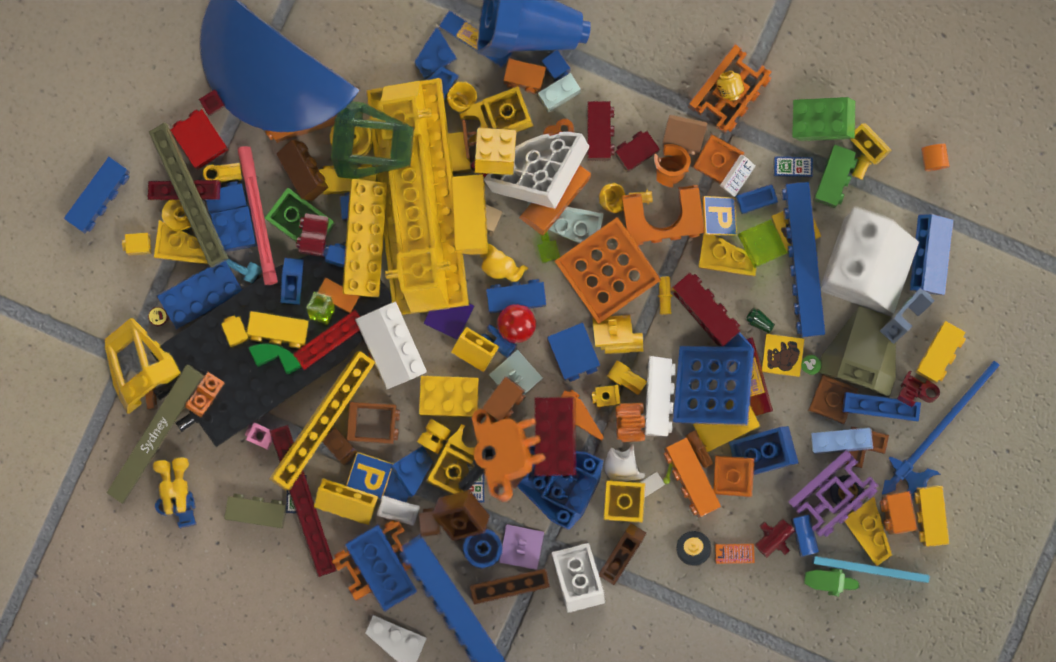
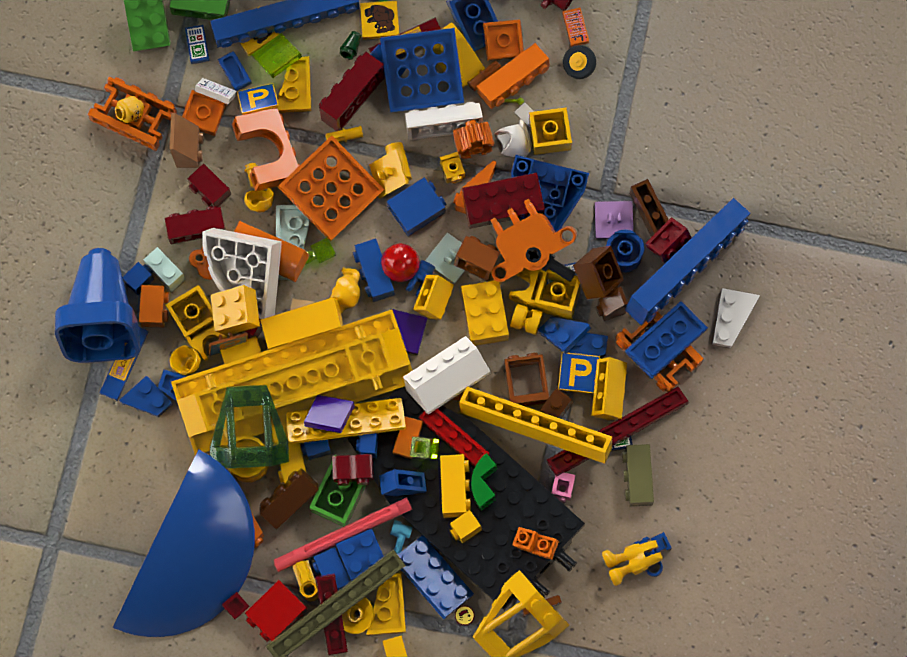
camera: 100 degrees left, 10 degrees down
(155, 434) = (585, 587): olive tile -> none
(372, 222) = (329, 414): none -> tile
(398, 510) = (606, 338): white tile -> none
(478, 592) = (668, 239): none -> dark red bracket
(578, 577) = (631, 159): white slope -> none
(622, 554) = (599, 124): reddish brown slope -> none
(623, 376) = (429, 158): yellow piece -> none
(672, 168) = (217, 148): orange helmet -> none

